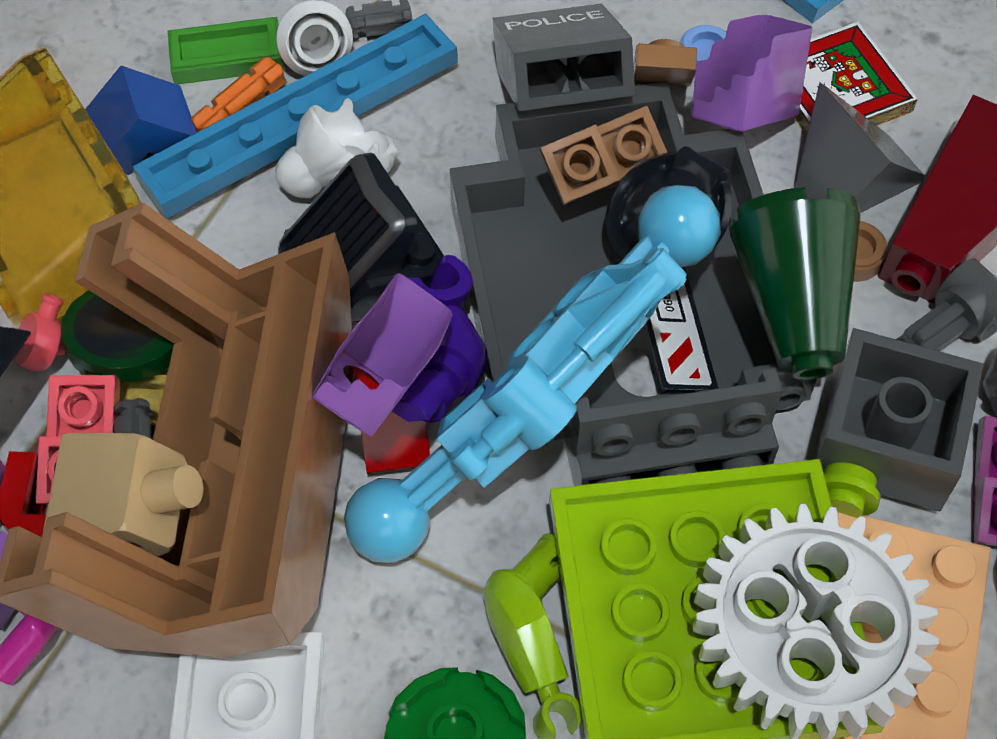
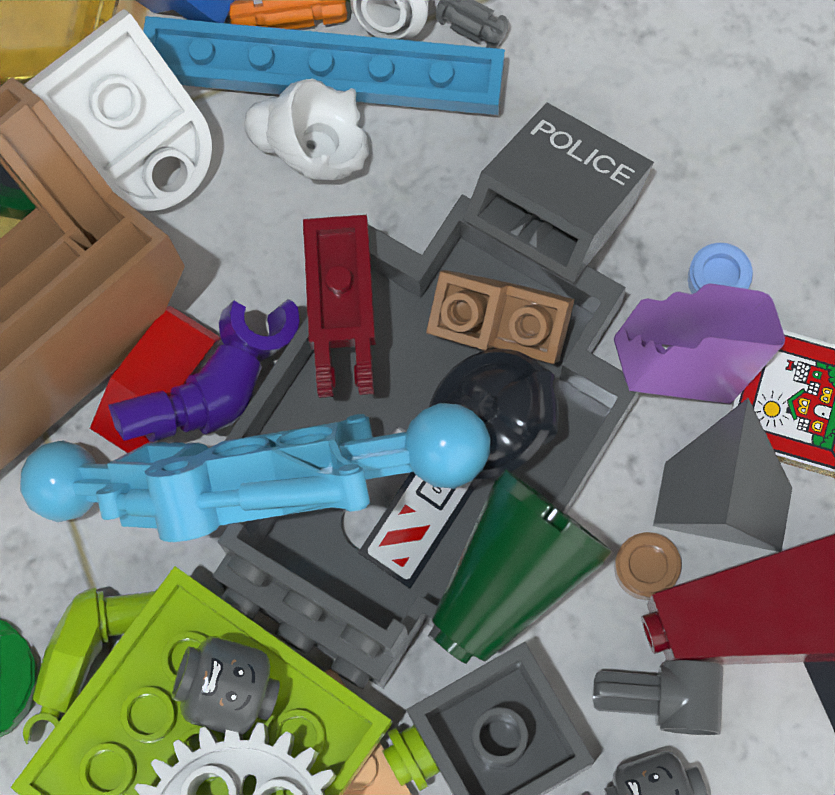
camera: 50 degrees right, 15 degrees up
(195, 197) = (127, 113): none -> white tile
(373, 228) = (245, 234): black piece -> none
(391, 341) = (169, 353): medium lavender piece -> none
(489, 219) = (339, 297): none -> dark red hinge
(665, 61) = (640, 267): medium nougat slope -> none
(687, 521) = (225, 685): none -> dark grey head

